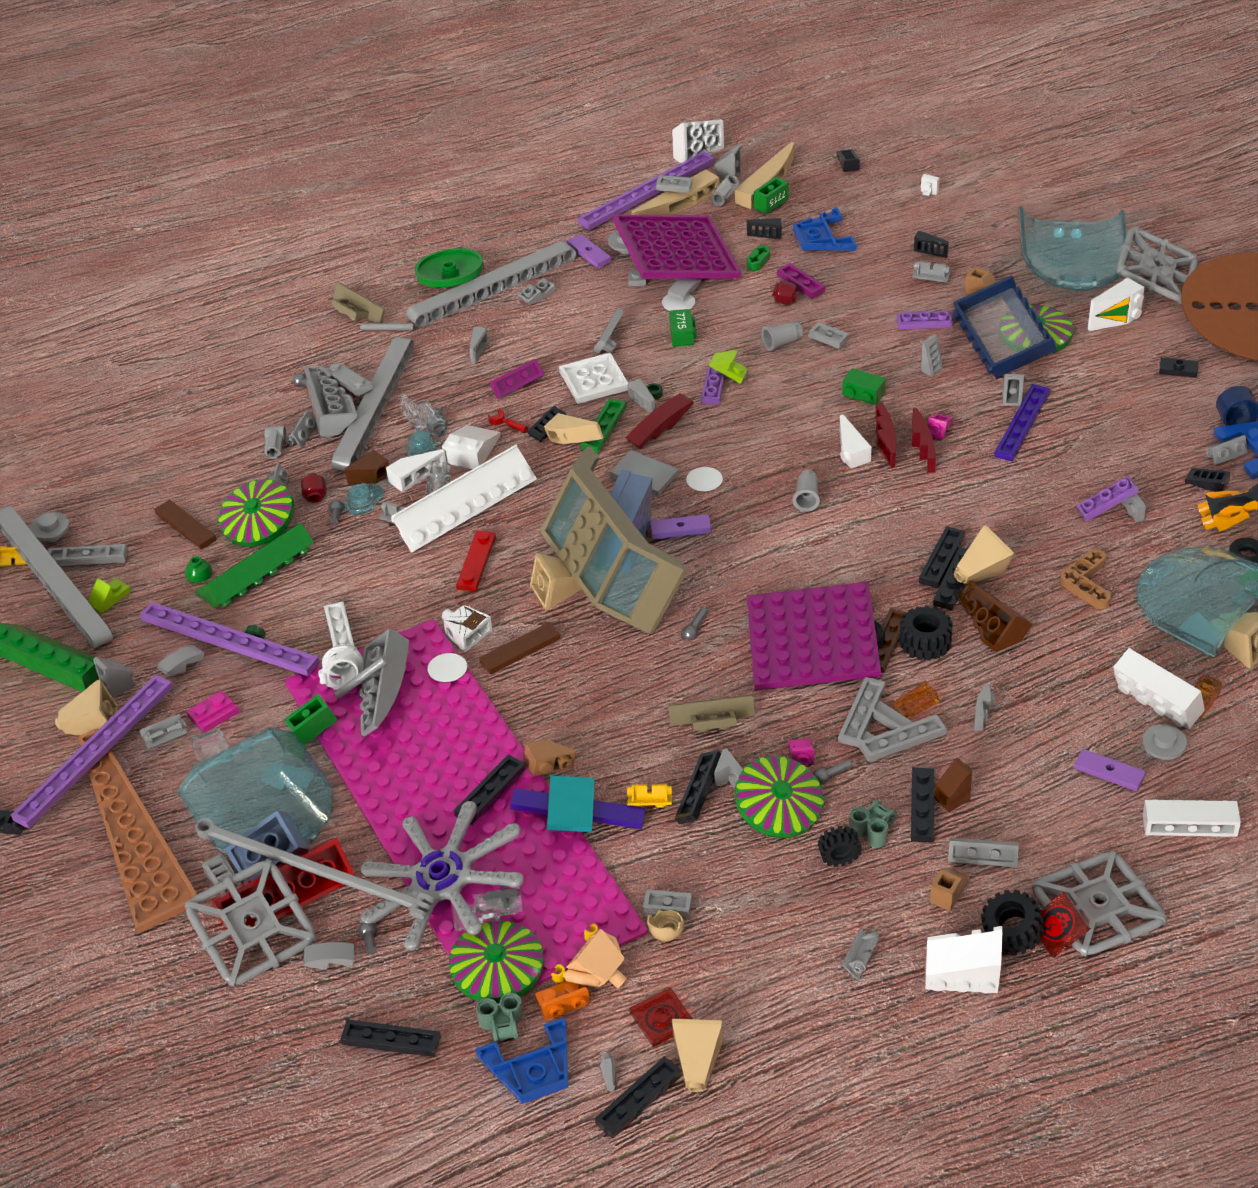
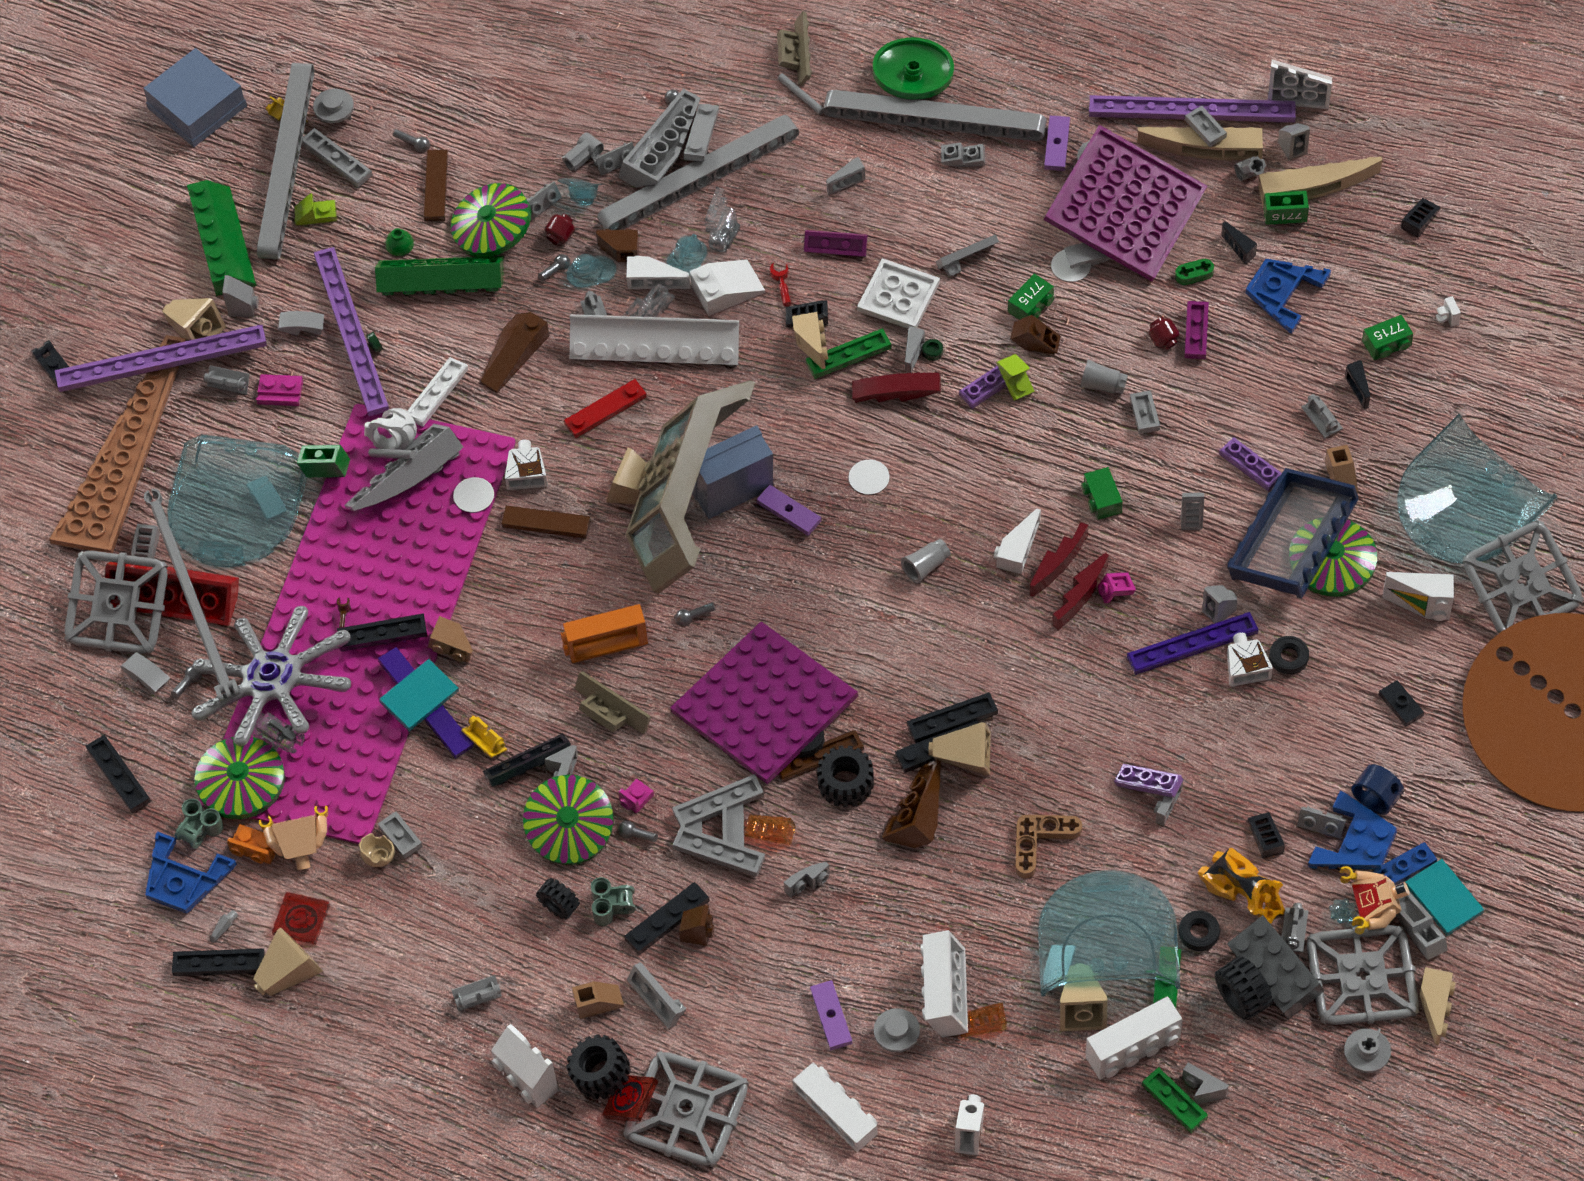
camera: 45 degrees right, 15 degrees up
(142, 511) = (420, 144): none -> flat silver bar
(208, 744) = (238, 424): clear piece -> none
(277, 831) = (198, 545): sand blue slope -> none
(304, 459) = (581, 191): none -> clear light blue piece
(363, 569) = (514, 347): none -> reddish brown wedge
(439, 799) = (343, 609): none -> reddish brown hand
(646, 466) = (827, 430): light grey tile -> none
(656, 671) = (604, 633): none -> orange piece
(709, 341) = (1035, 335): none -> reddish brown slope
(914, 215) = (1387, 337): none -> green brick
(1068, 405) = (1247, 661): none -> torso
(1085, 396) = (1289, 642): none -> black tyre

